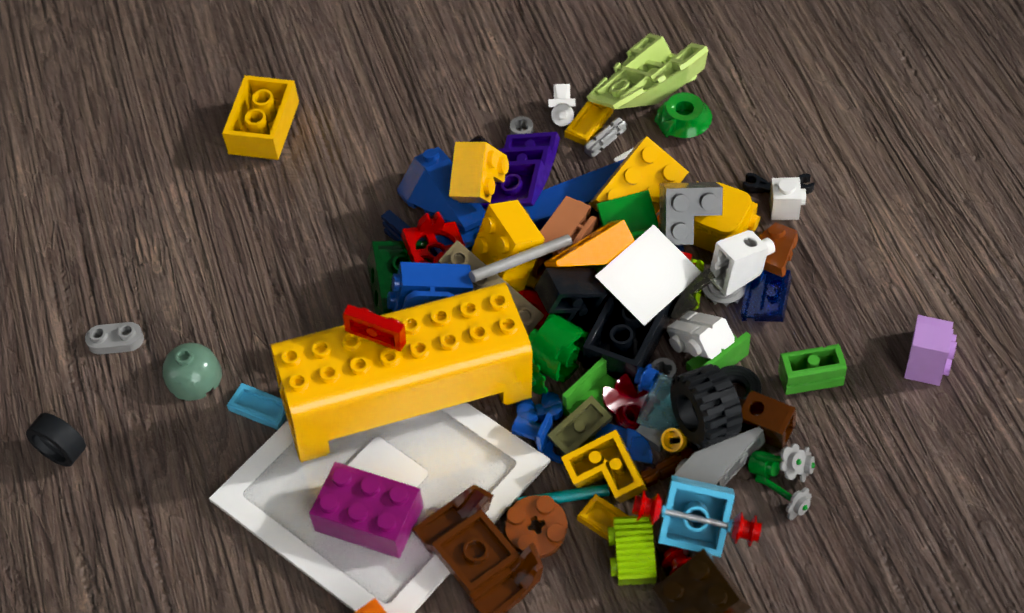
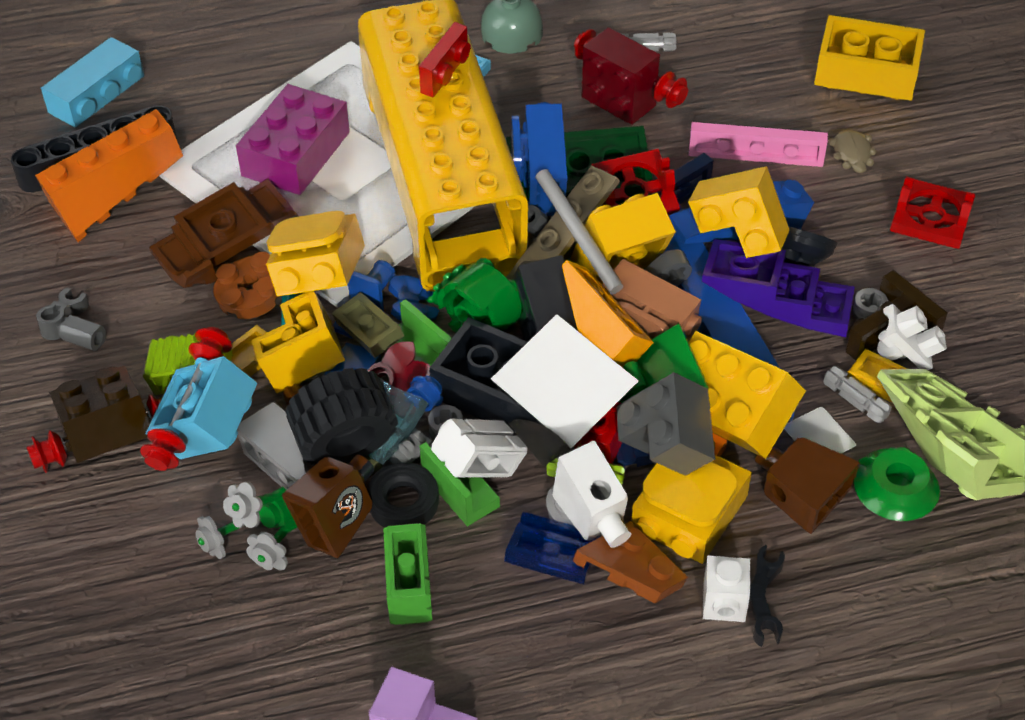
camera: 90 degrees right, 5 degrees down
(219, 272) = (654, 42): none -> light grey axle
(282, 274) = (624, 75): none -> dark red brick
(354, 196) = (758, 144): none -> bright pink fence
(356, 136) = (853, 150): none -> dark tan piece
(415, 101) = (928, 229): none -> red piece
(526, 456) = (314, 252): none -> yellow brick
(532, 104) = (904, 296): none -> dark brown bracket
(695, 155) = (807, 480): none -> reddish brown torso

